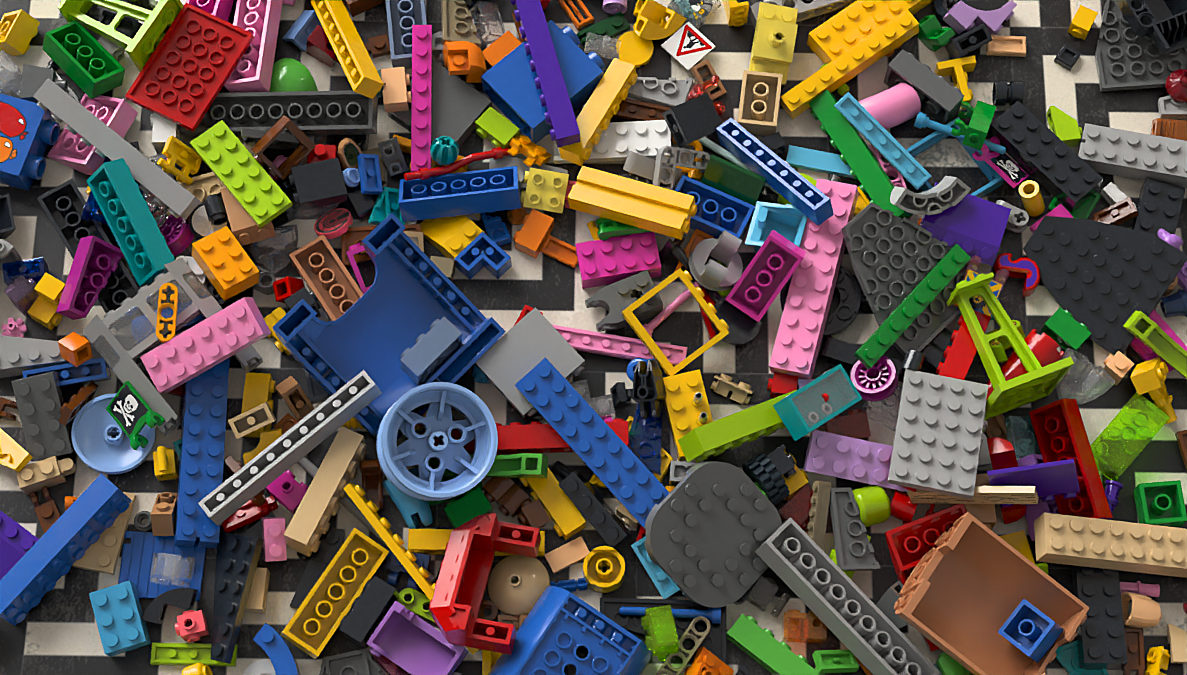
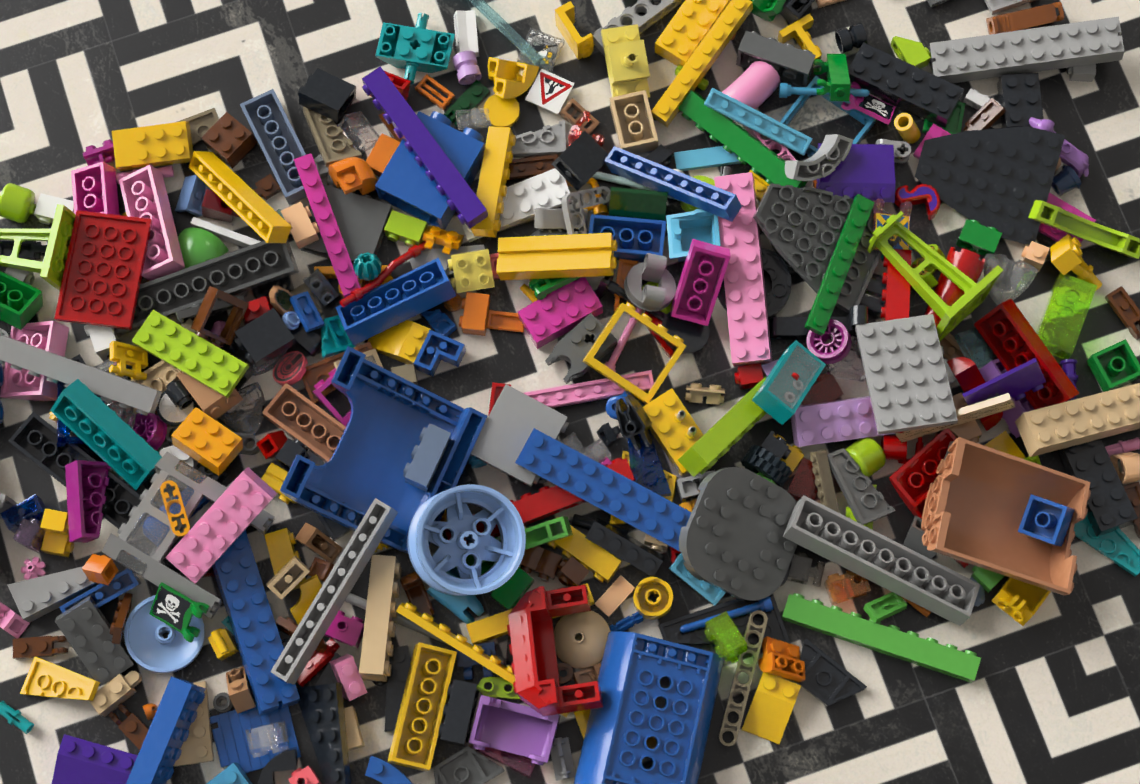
camera: 15 degrees left, 5 degrees up
(317, 72) = (223, 233): none -> white tile

